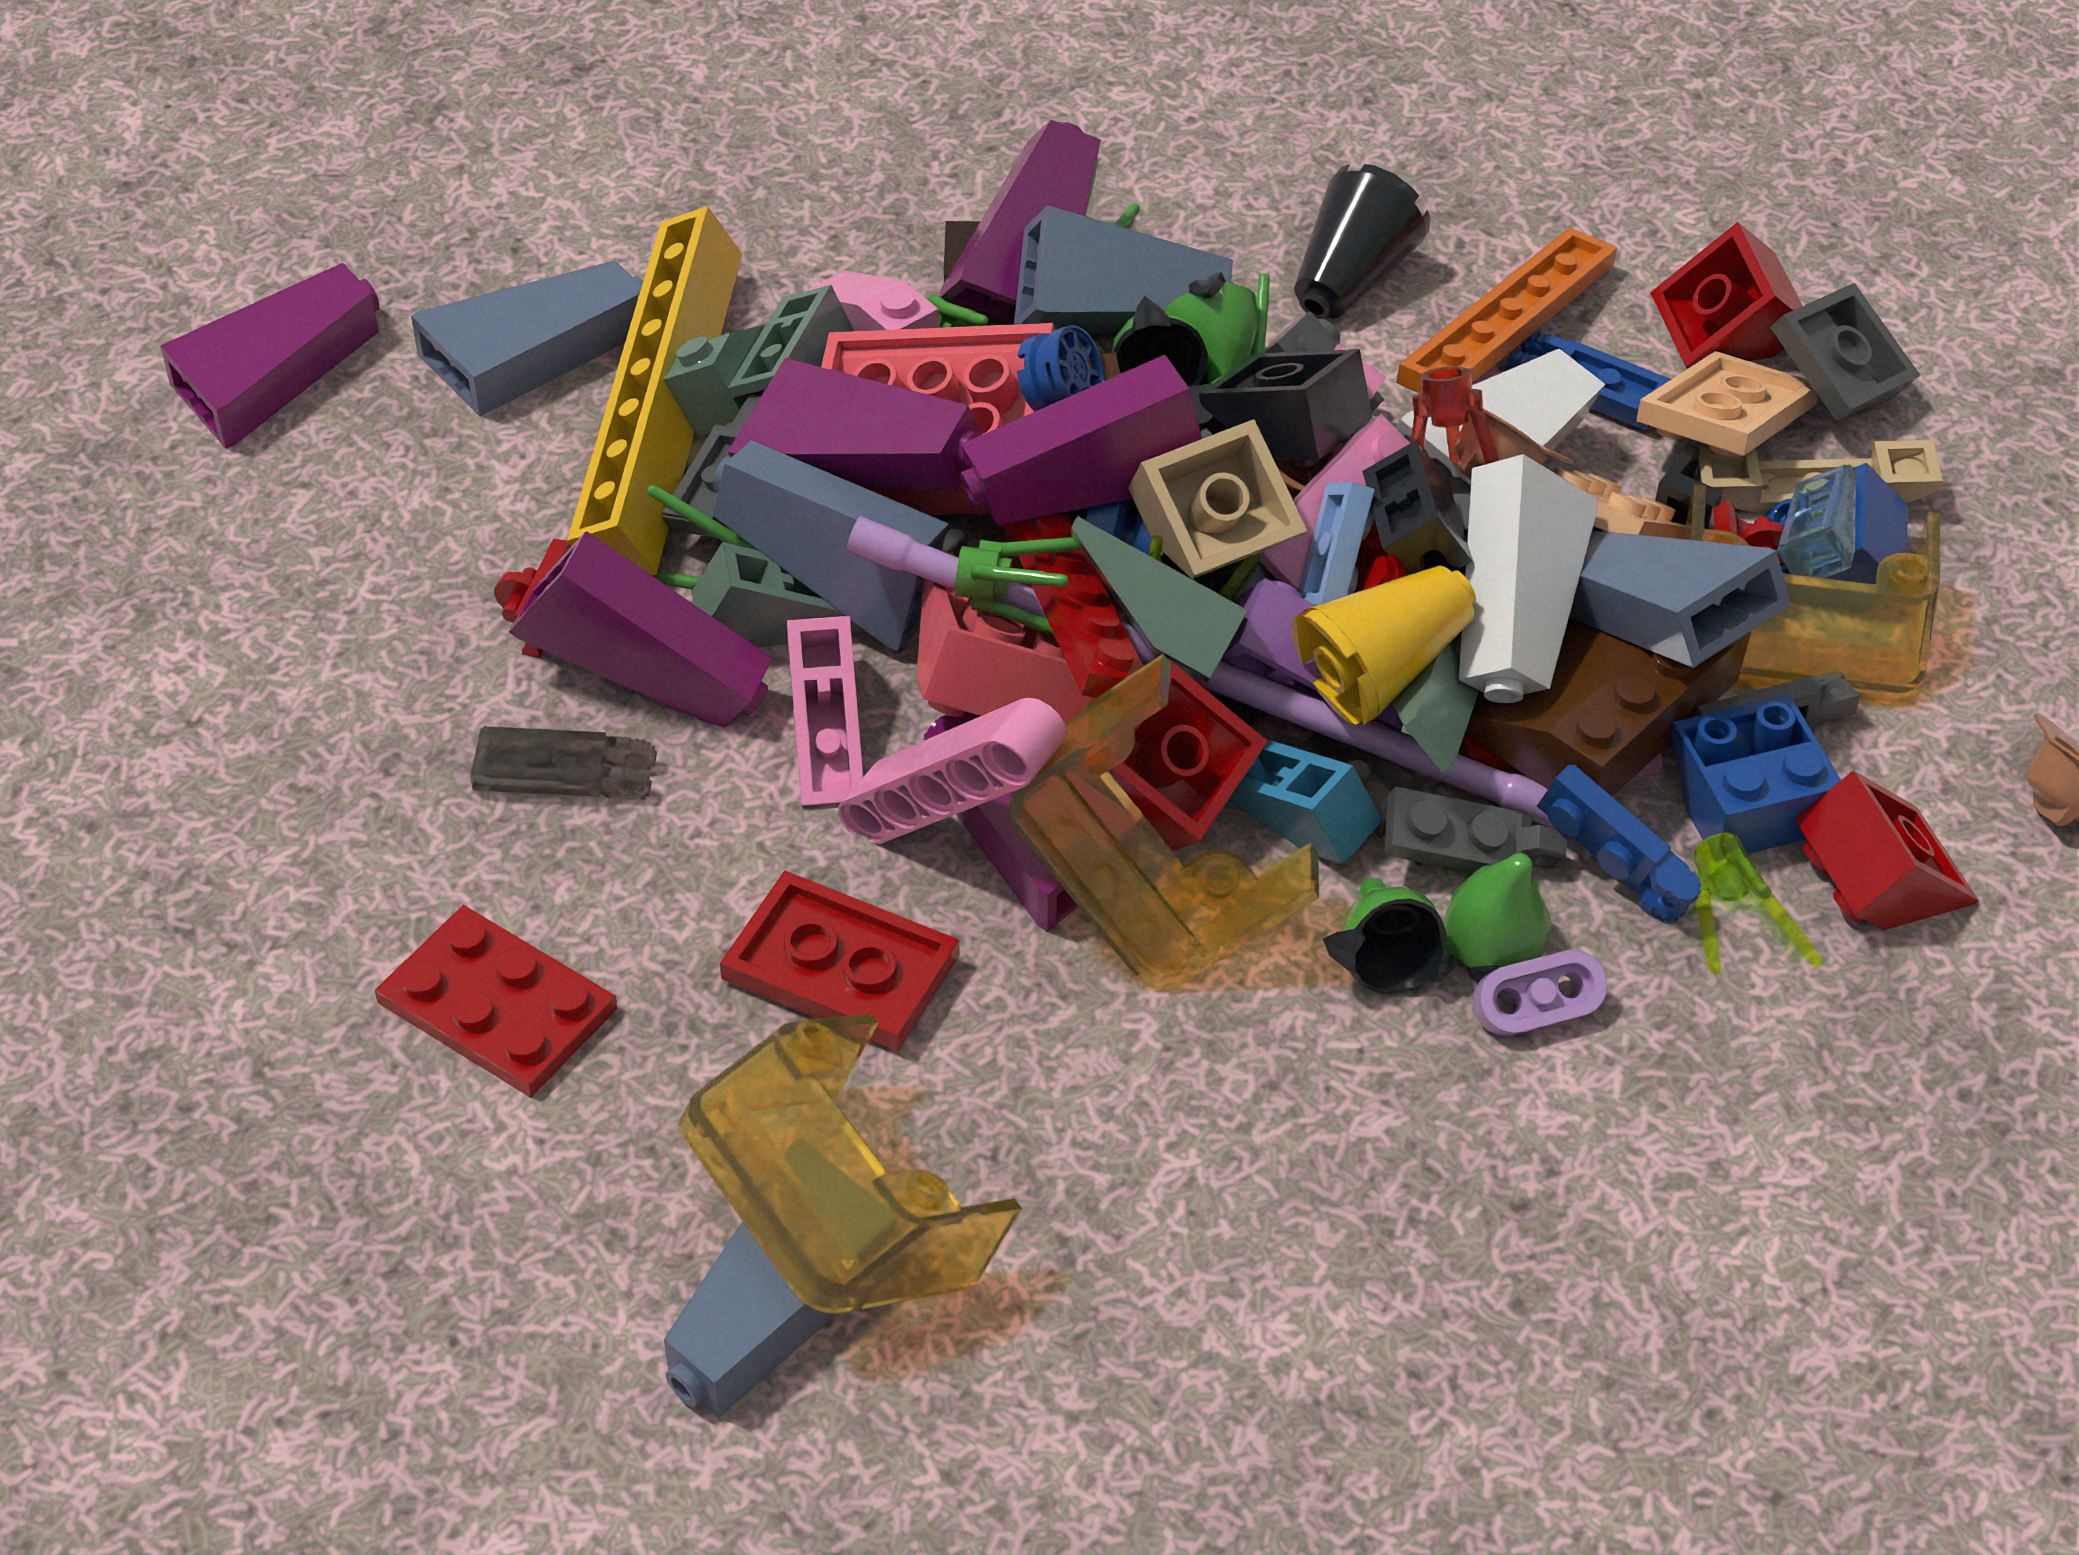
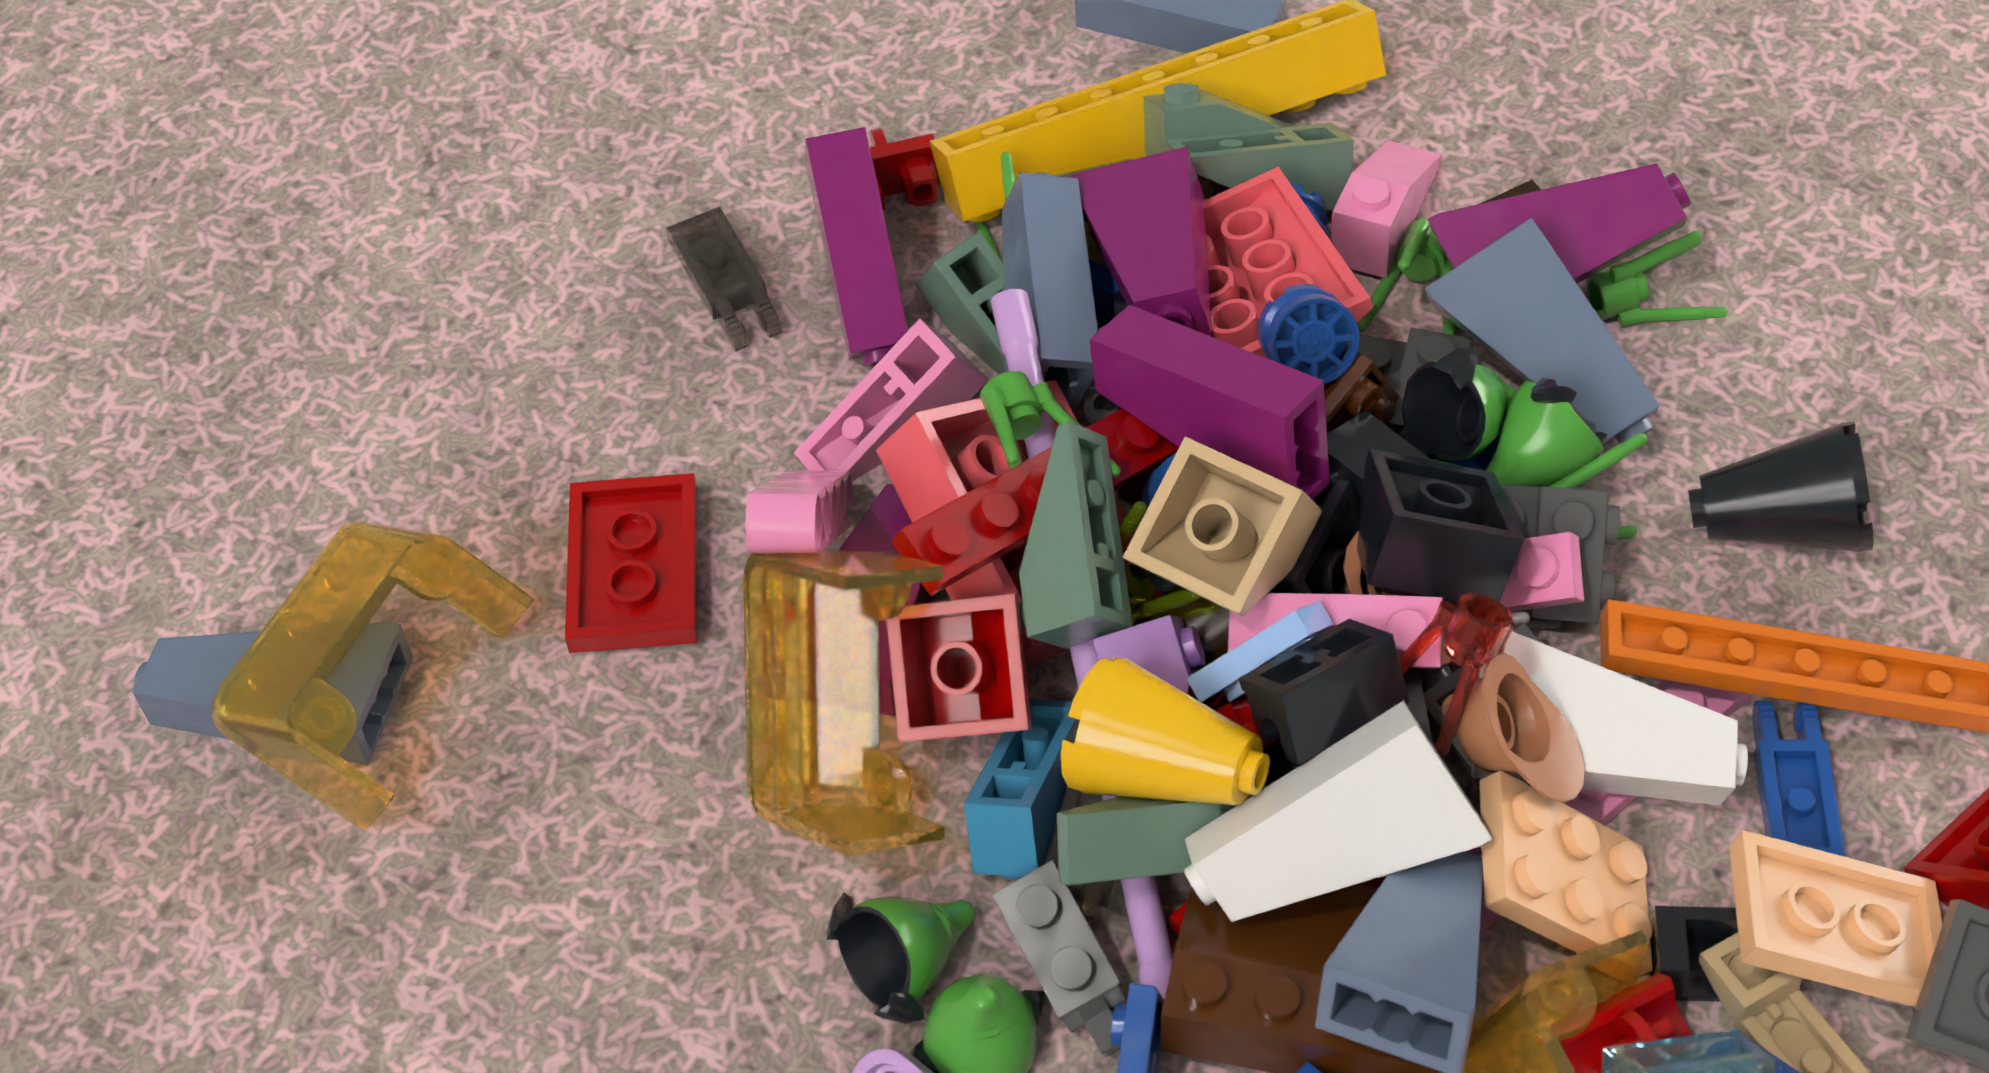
camera: 65 degrees right, 5 degrees up
(496, 1000) = (466, 371): red plate -> none

